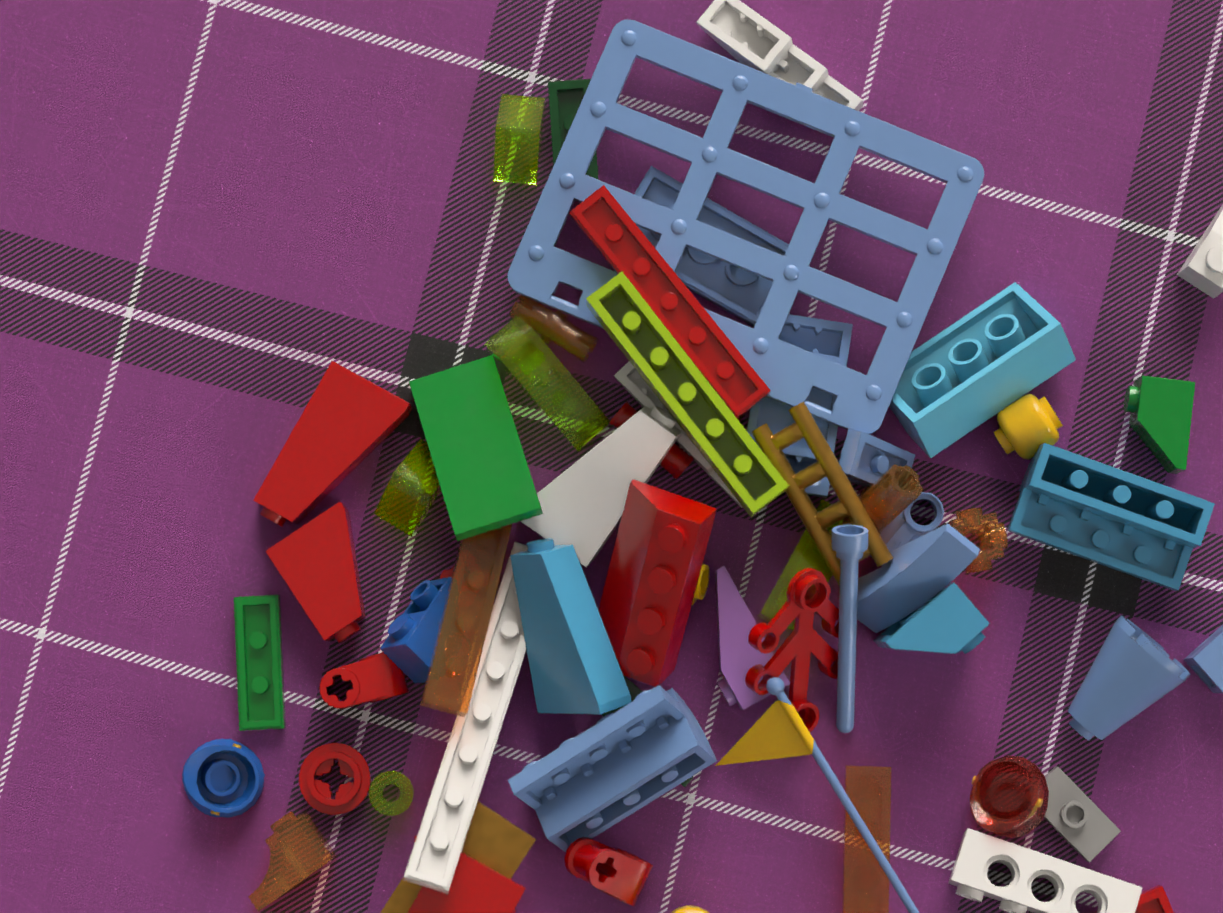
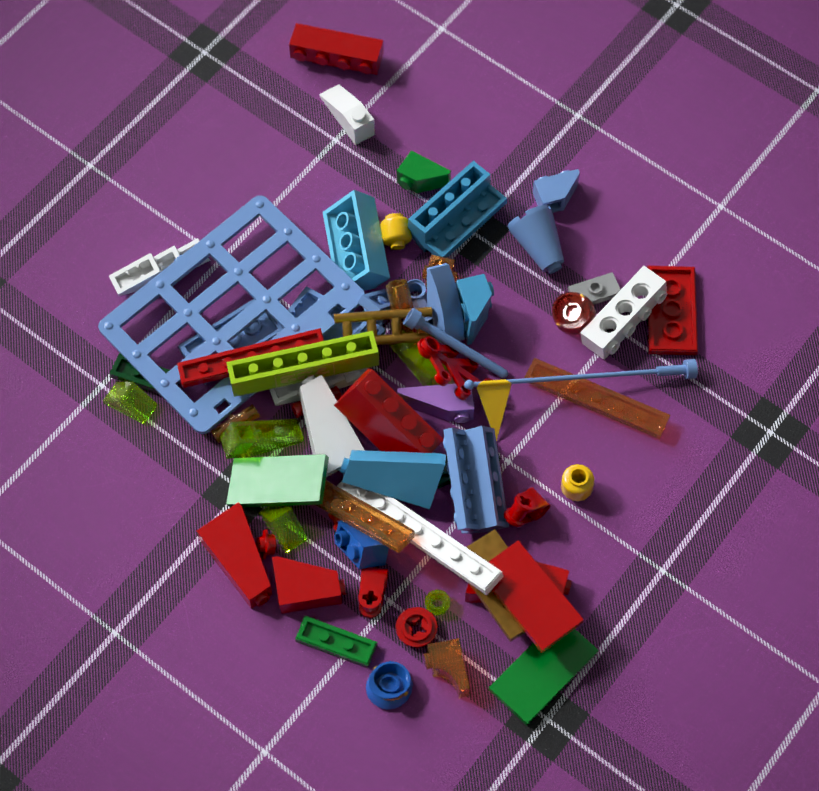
camera: 65 degrees left, 20 degrees down
(366, 478) = (266, 544): none -> red plate

